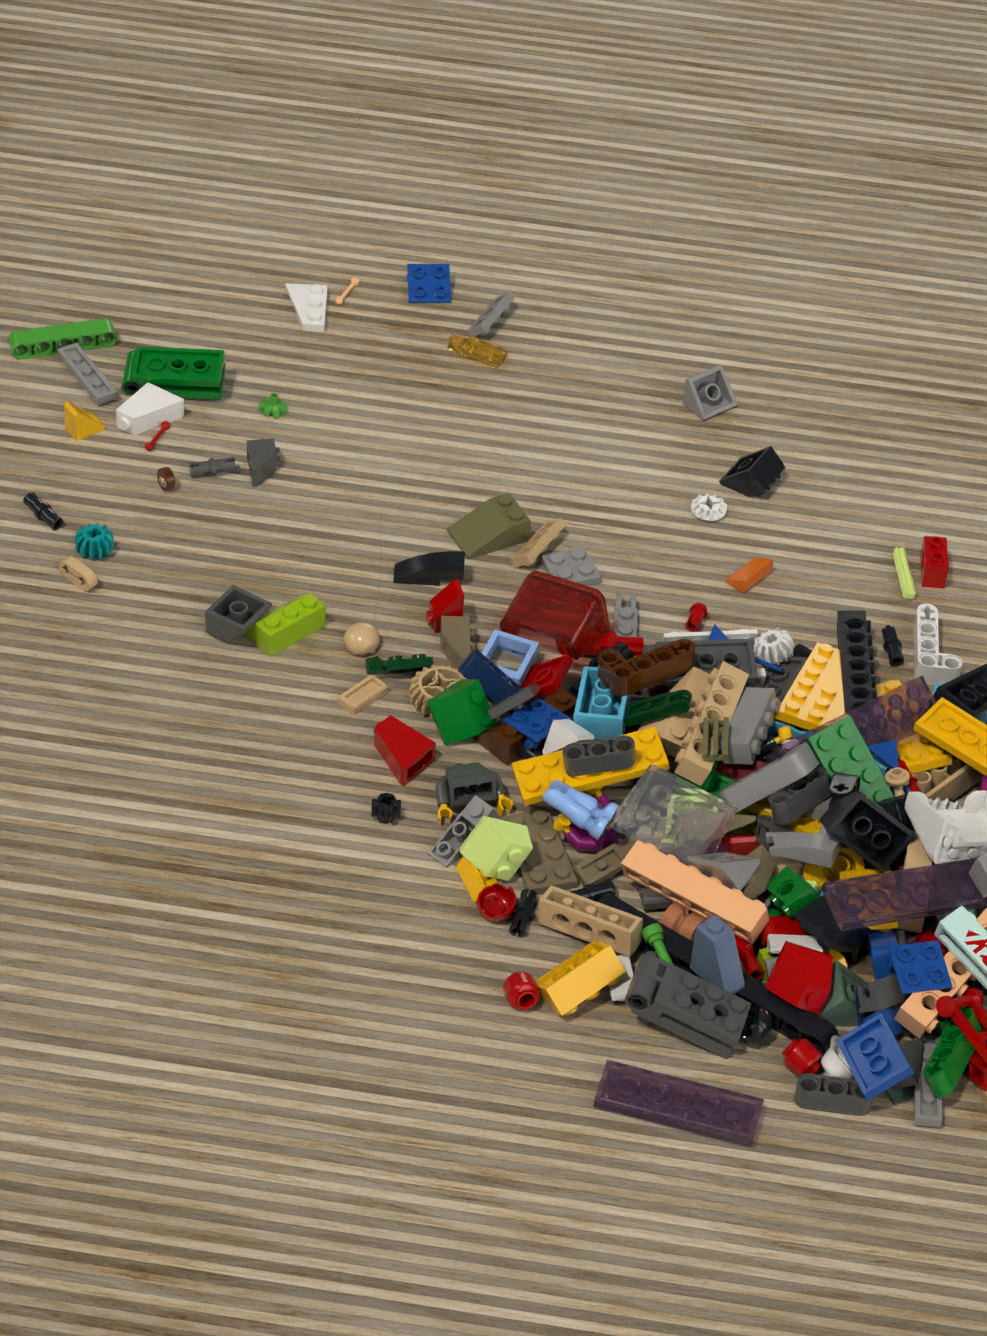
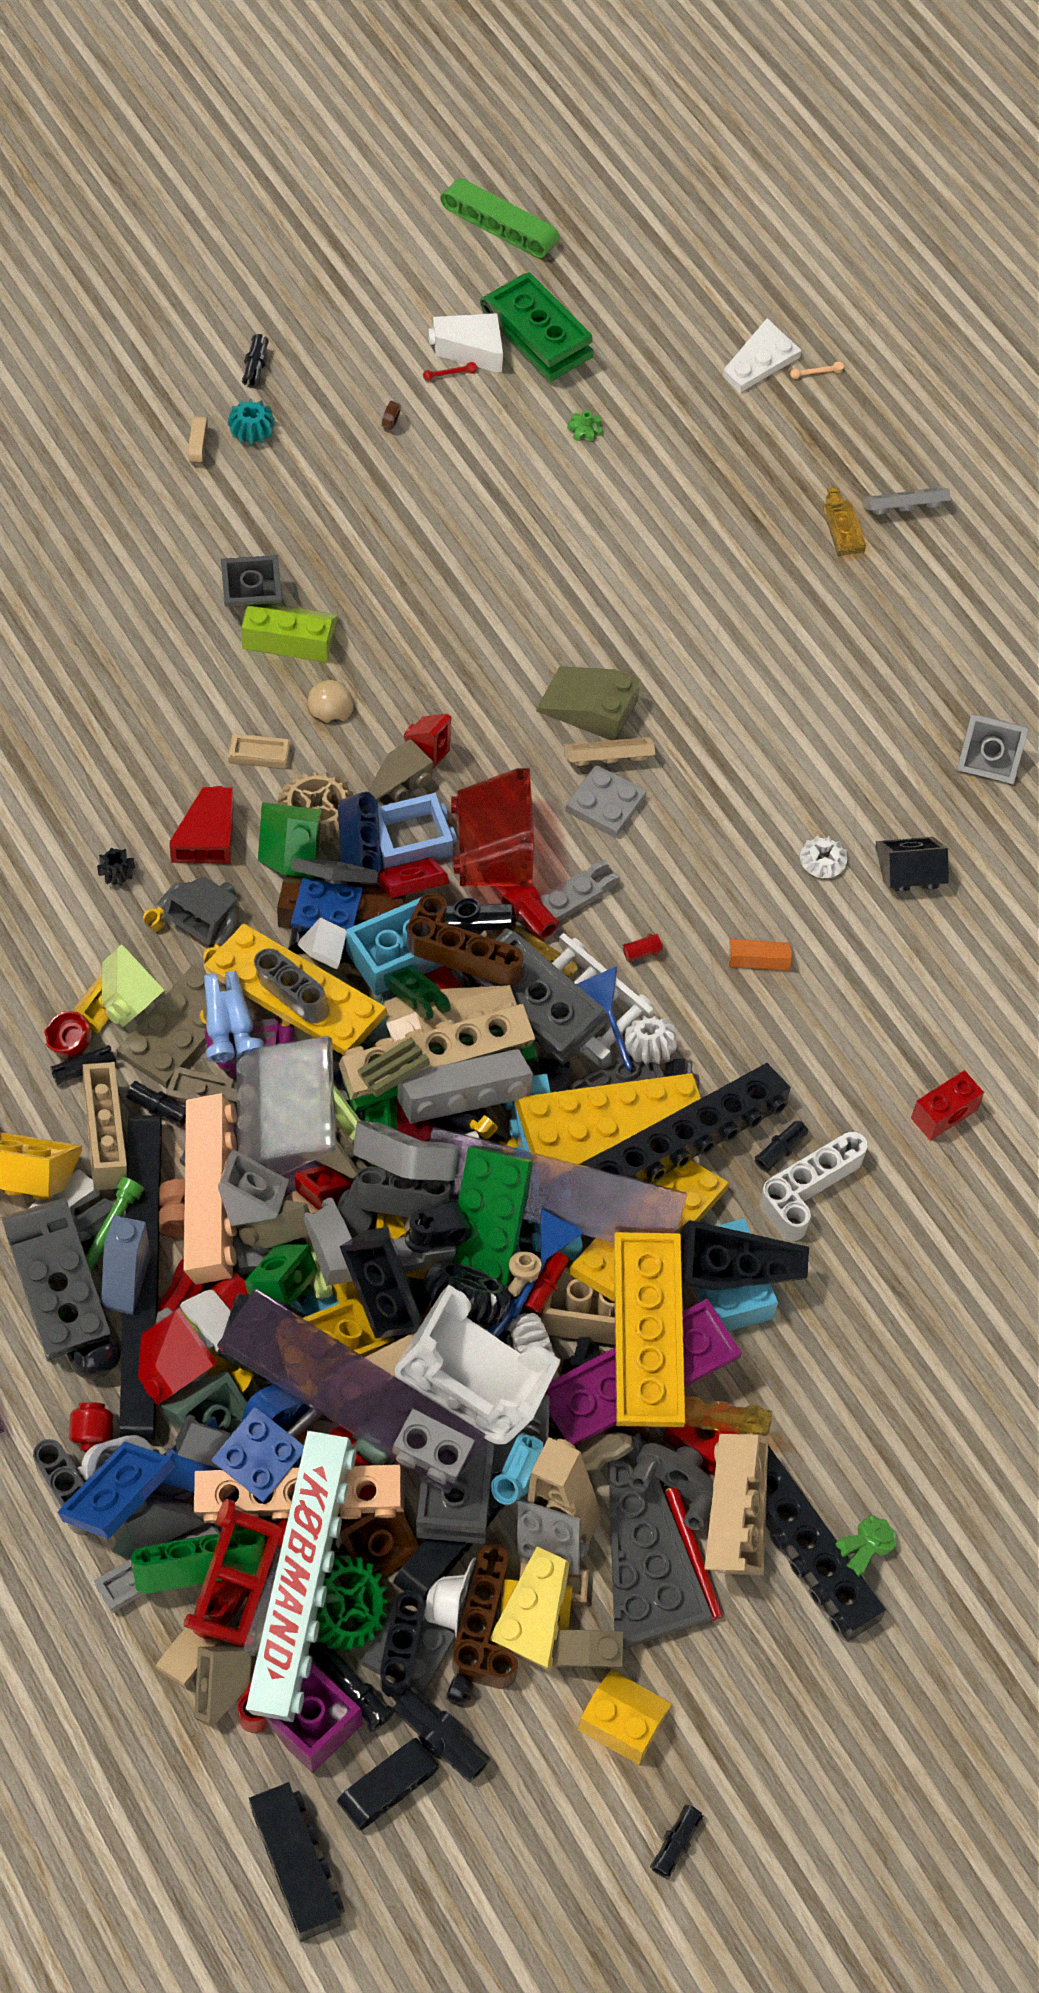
camera: 50 degrees right, 15 degrees up
(81, 422) = (402, 305): yellow slope -> none
(87, 373) = (472, 266): light grey plate -> none
(212, 466) = (446, 437): dark grey pin -> none
(262, 459) = (491, 466): dark grey slope -> none
(397, 664) = (318, 751): dark green hinge -> none
(428, 283) = (896, 422): blue hinge -> none
(430, 568) = (481, 691): black slope -> none
(447, 847) = (155, 948): light grey slope -> none
(904, 573) = (908, 1089): yellowish green axle -> none

